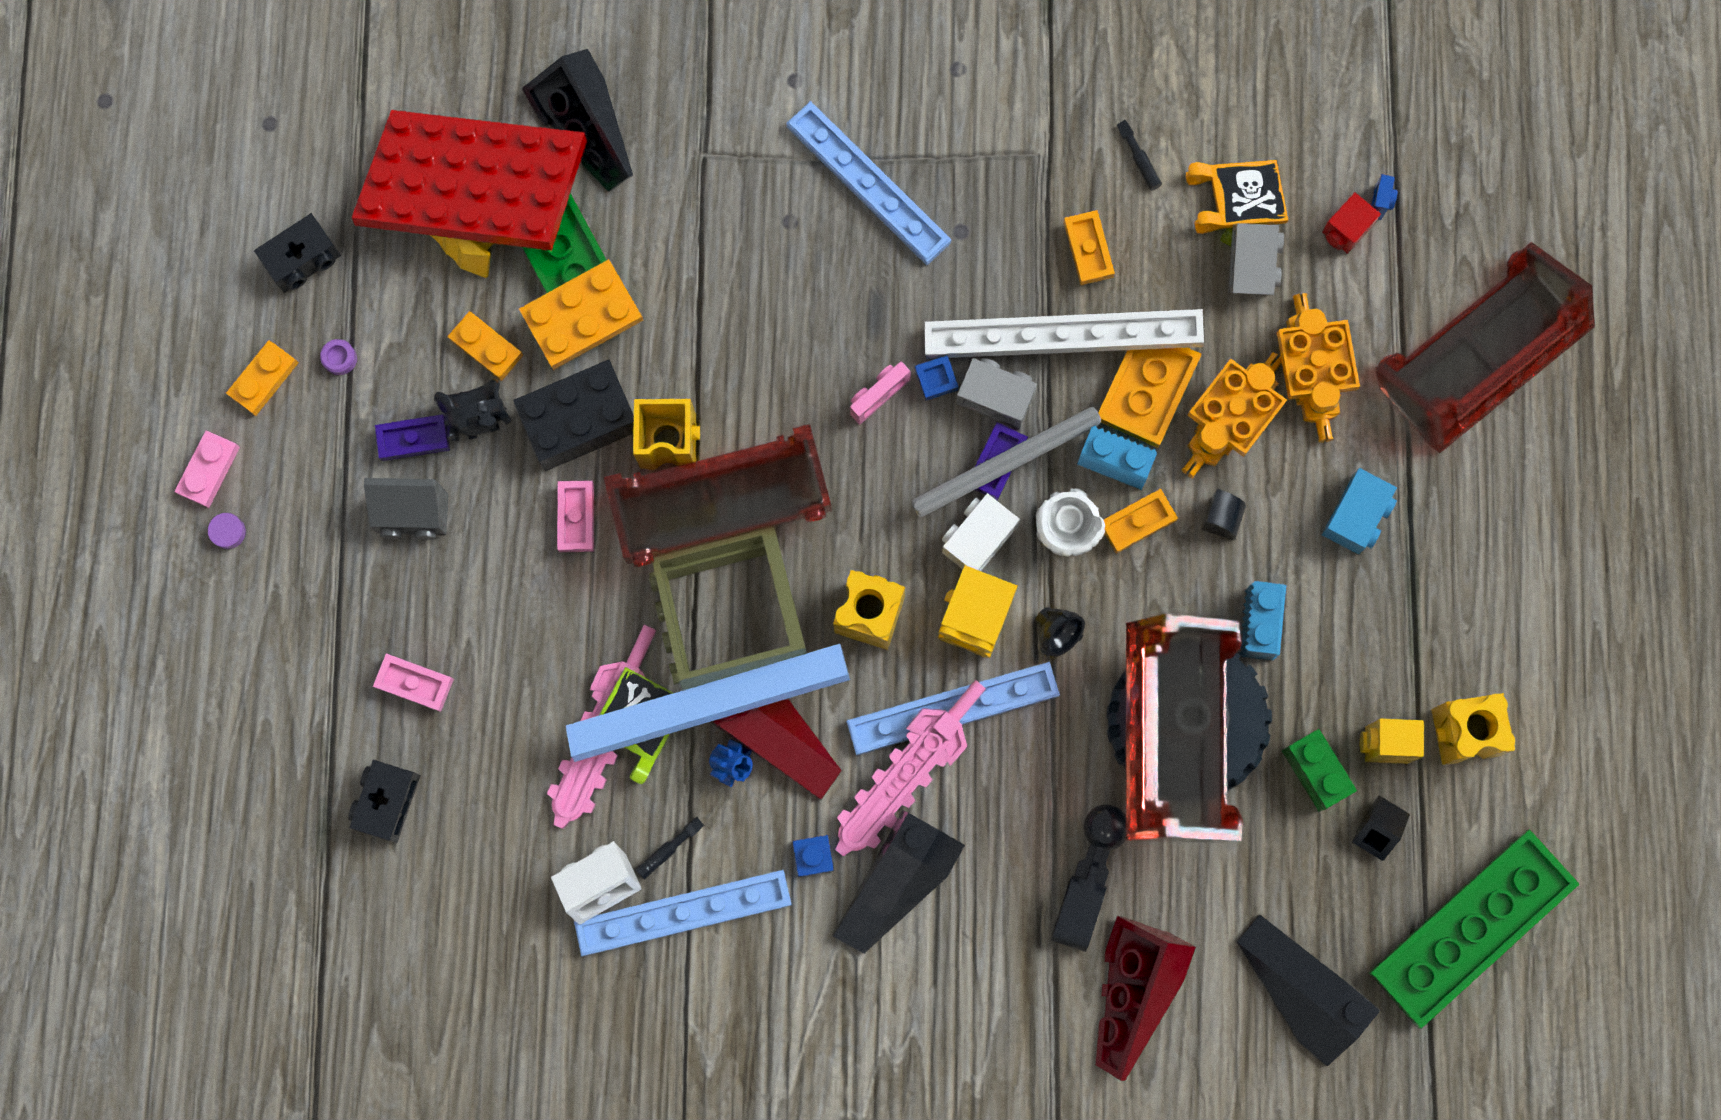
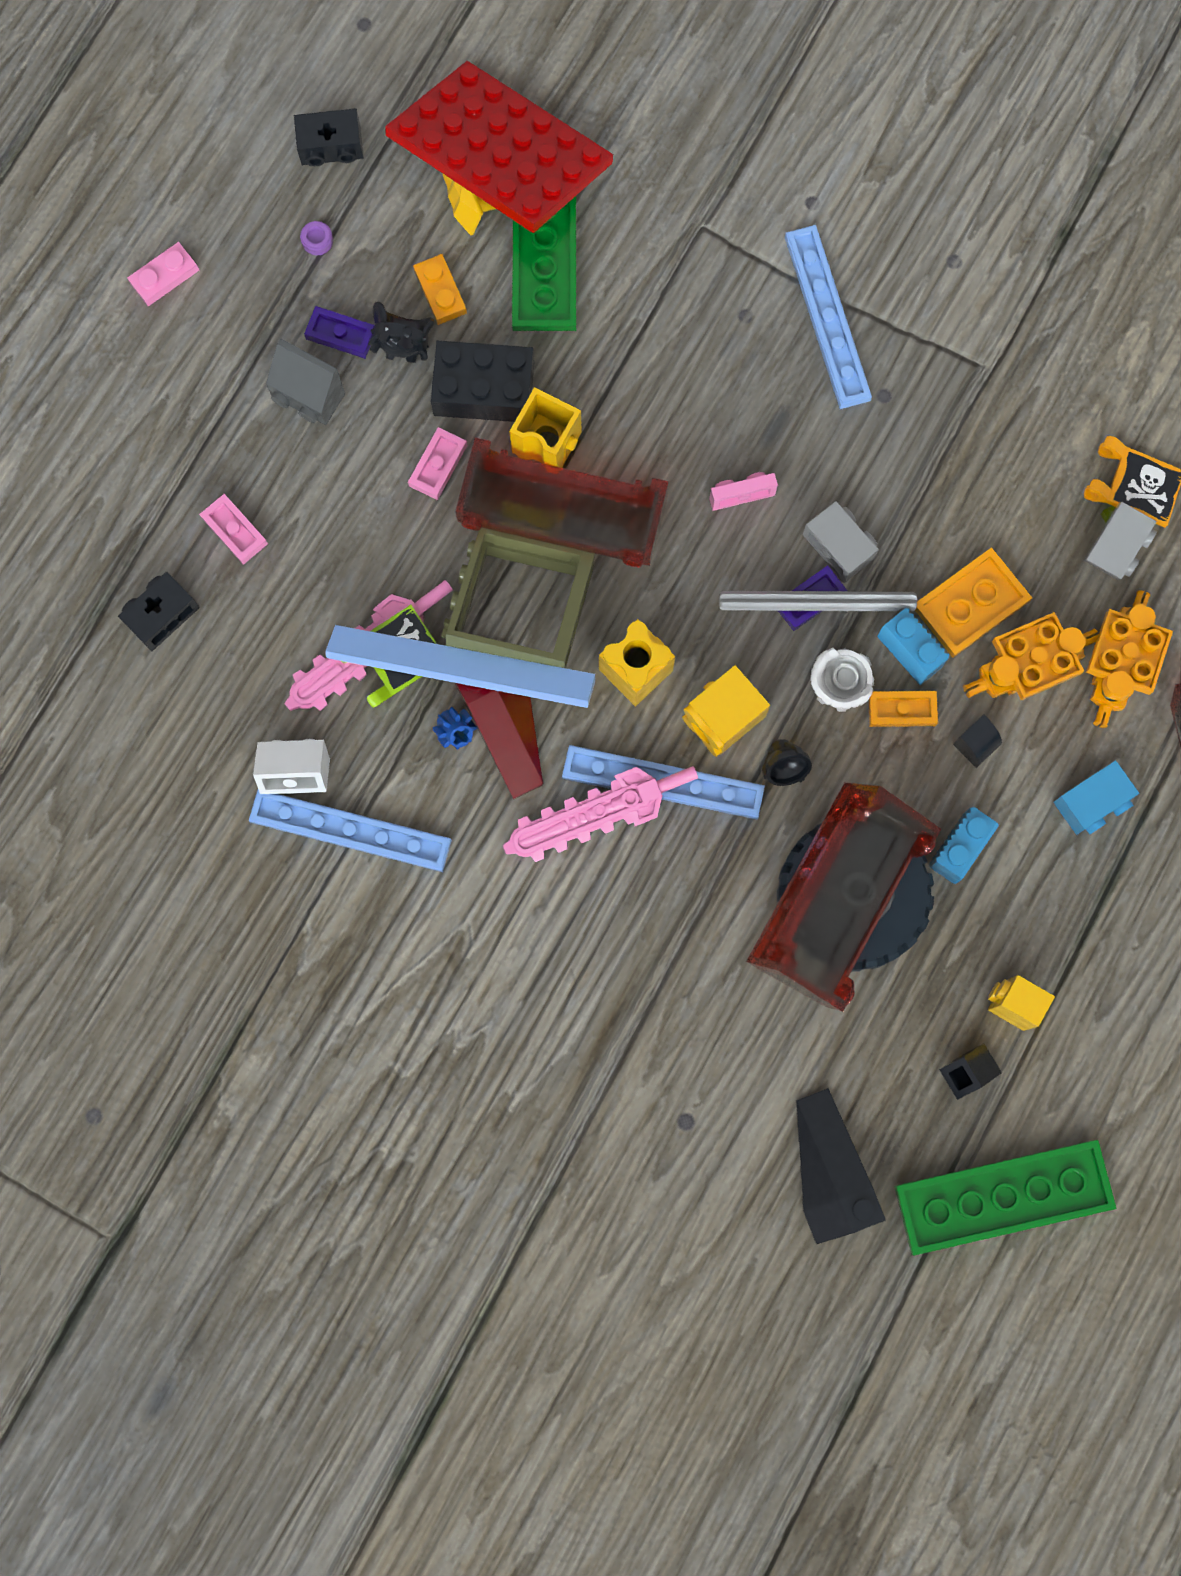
camera: 25 degrees right, 0 degrees up
(226, 531) = (151, 331): medium lavender tile -> none
(262, 377) = (246, 223): light orange plate -> none
(576, 98) = (622, 123): black wedge -> none
(581, 314) = (530, 301): light orange plate -> none
(668, 849) = (366, 772): black piece -> none
(813, 856) = (481, 841): blue plate -> none
(902, 875) = (545, 896): black wedge -> none
(936, 378) = (797, 503): blue plate -> none
(981, 533) = (764, 650): white brick -> none
(1064, 334) = (925, 521): white plate -> none
(1086, 890) = (695, 985): black beam -> none
(1089, 247) = (984, 462): light orange plate -> none
(1140, 156) = (1069, 410): black piece -> none
(1142, 982) = (699, 1089): dark red wedge -> none
(1319, 770) = (943, 994): green brick -> none
(1451, 726) = (1076, 1018): yellow piece -> none

